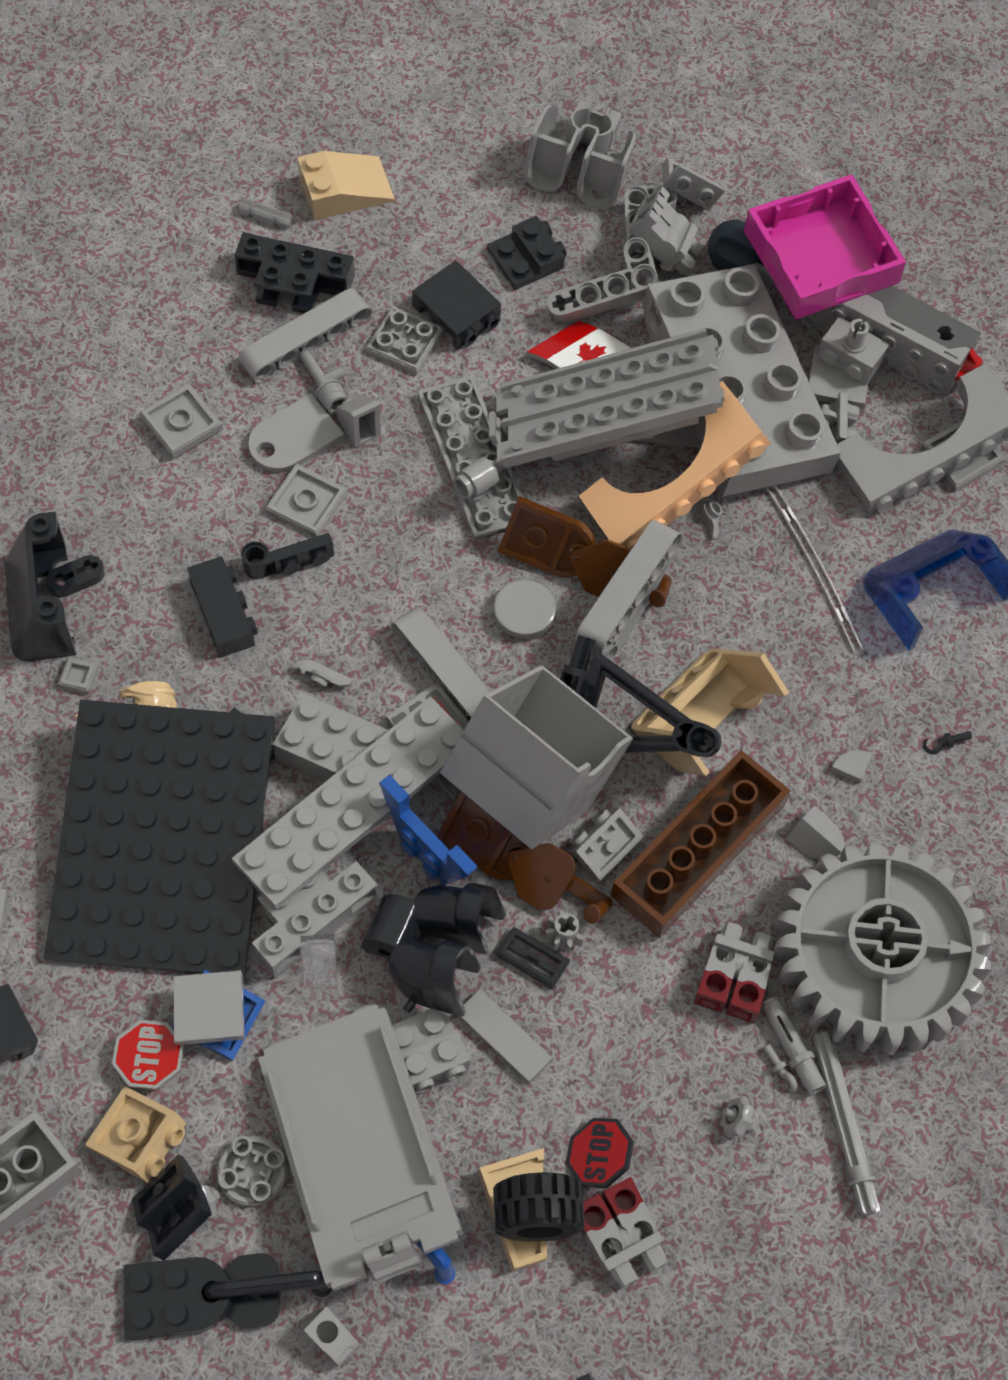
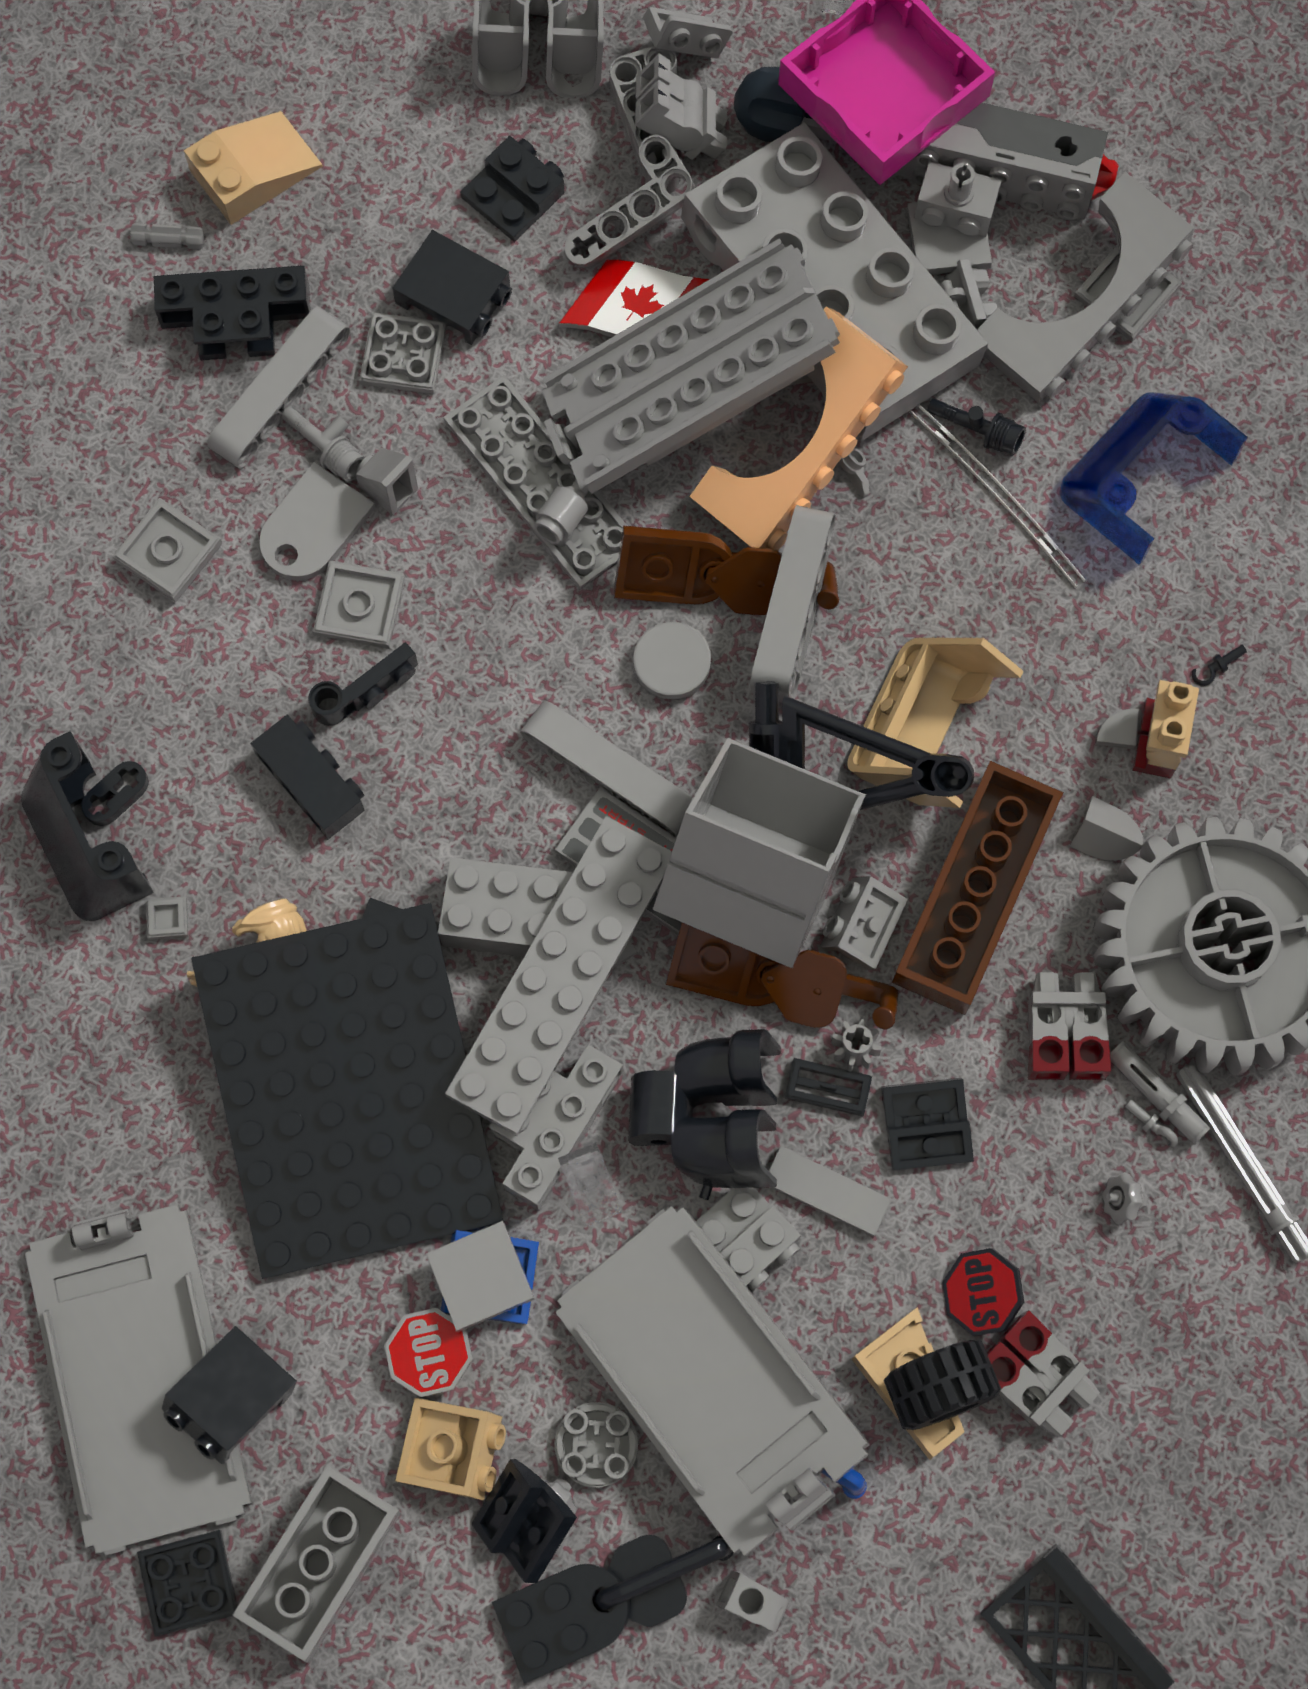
camera: 15 degrees left, 10 degrees up
(322, 675) = (459, 822): light grey piece -> none
(421, 841) = (653, 994): blue wing -> none
(601, 1010) = (927, 1123): none -> black slope
(829, 523) = (1000, 433): none -> black piece
(888, 770) = (1169, 726): none -> tan hips

